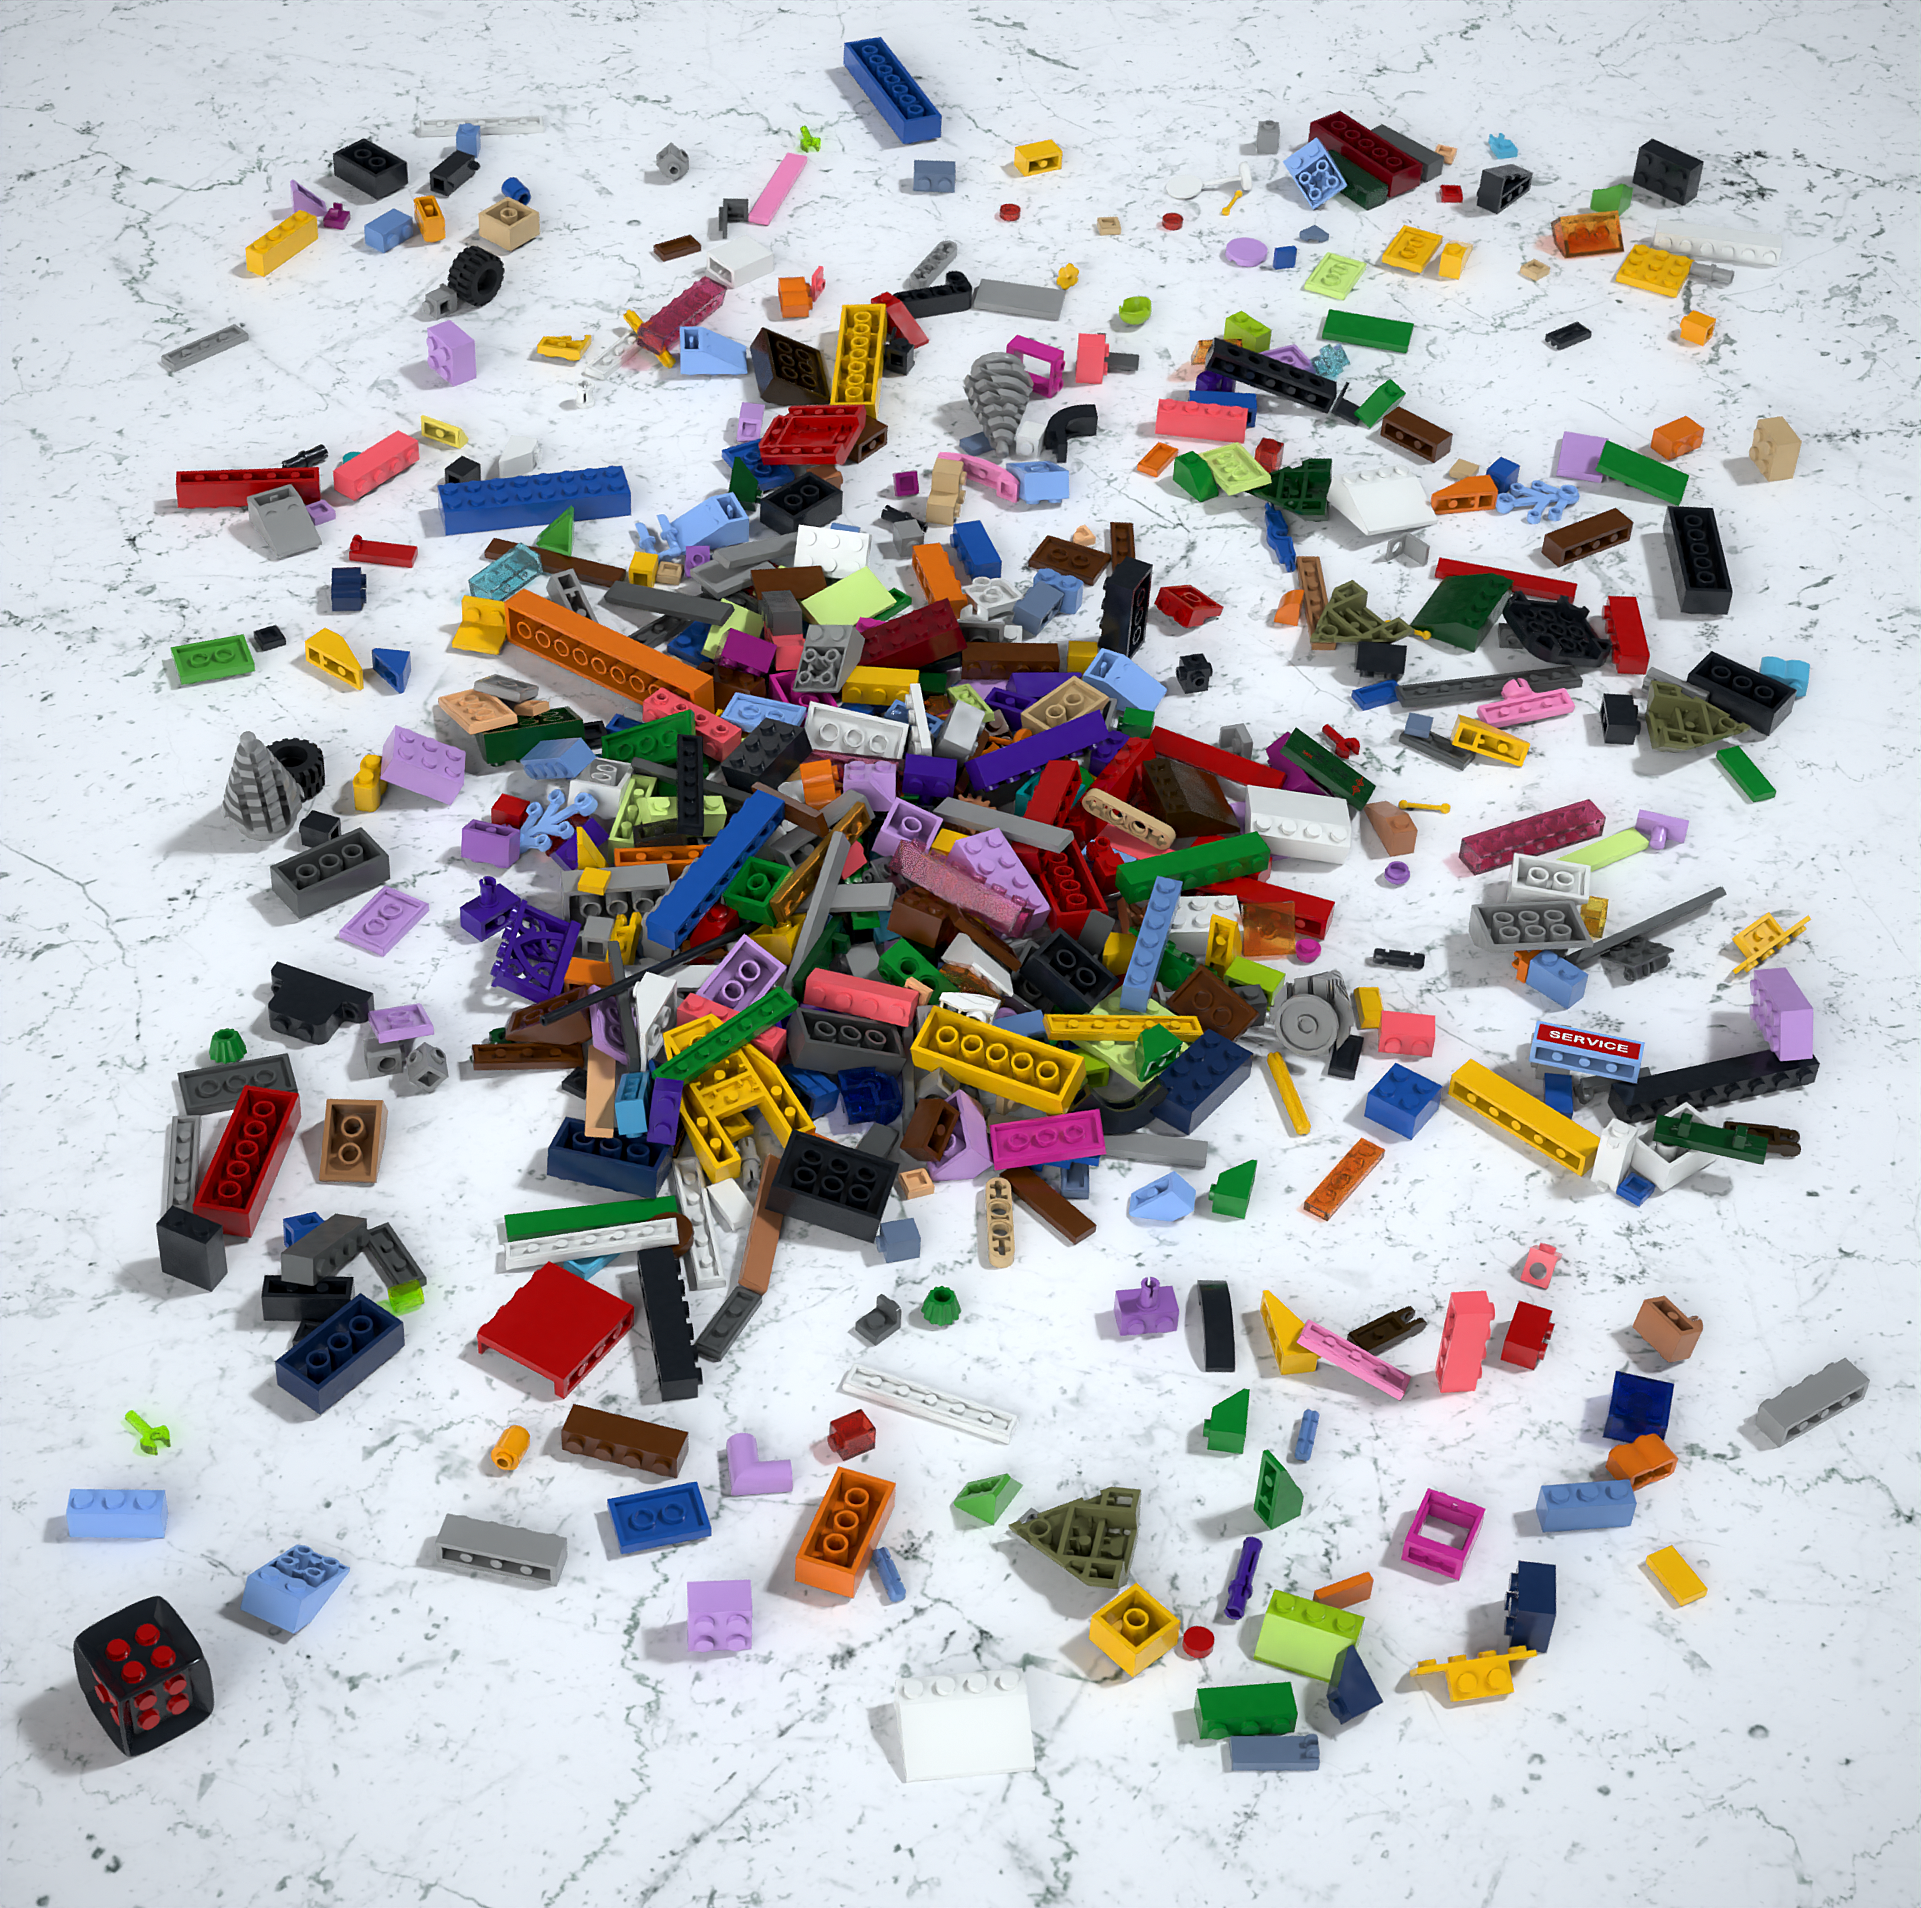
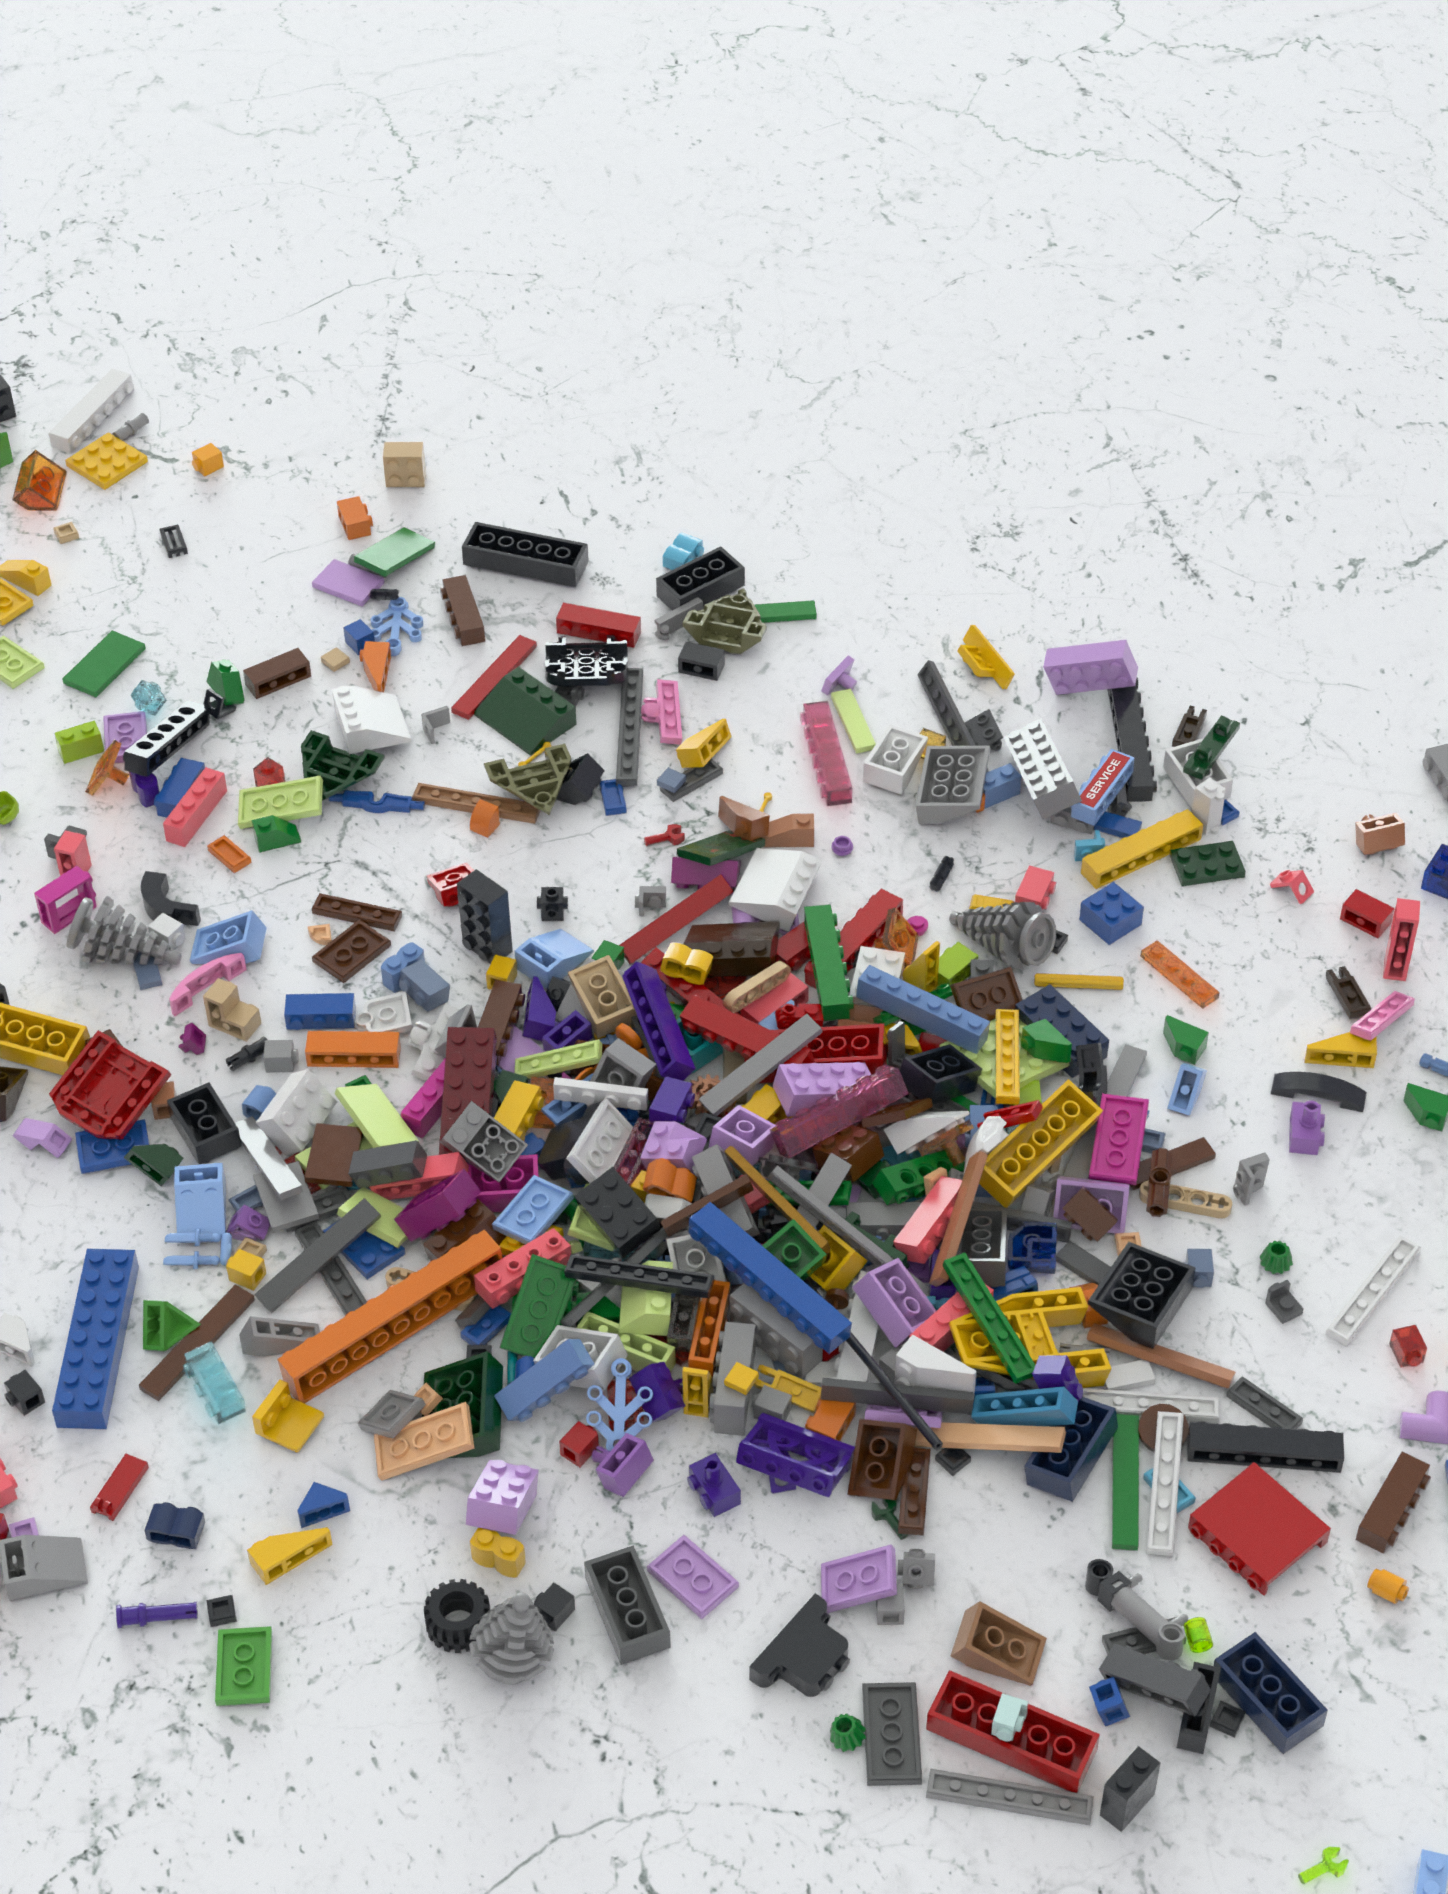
camera: 70 degrees left, 5 degrees up
(243, 1133) = (1009, 1717): none -> light aqua brick
(251, 592) = (142, 1613): none -> dark purple pin
(437, 1220) = (1116, 1593): none -> light grey piece
(869, 1000) = (959, 1216): none -> nougat tile
(999, 1182) = (1159, 1182): none -> reddish brown piece
(1014, 1024) = (1017, 1114): none -> red hinge
(1039, 1257) = (1250, 1176): none -> light grey bracket
(1129, 757) = (686, 963): none -> yellow brick
(1379, 780) = (743, 819): none -> dark orange slope
(1498, 1065) = (1088, 846): none -> medium azure bracket
(1539, 1183) = (1207, 863): none -> dark green plate
(1572, 477) = (384, 594): none -> black axle
(1584, 993) = (1042, 768): none -> brick

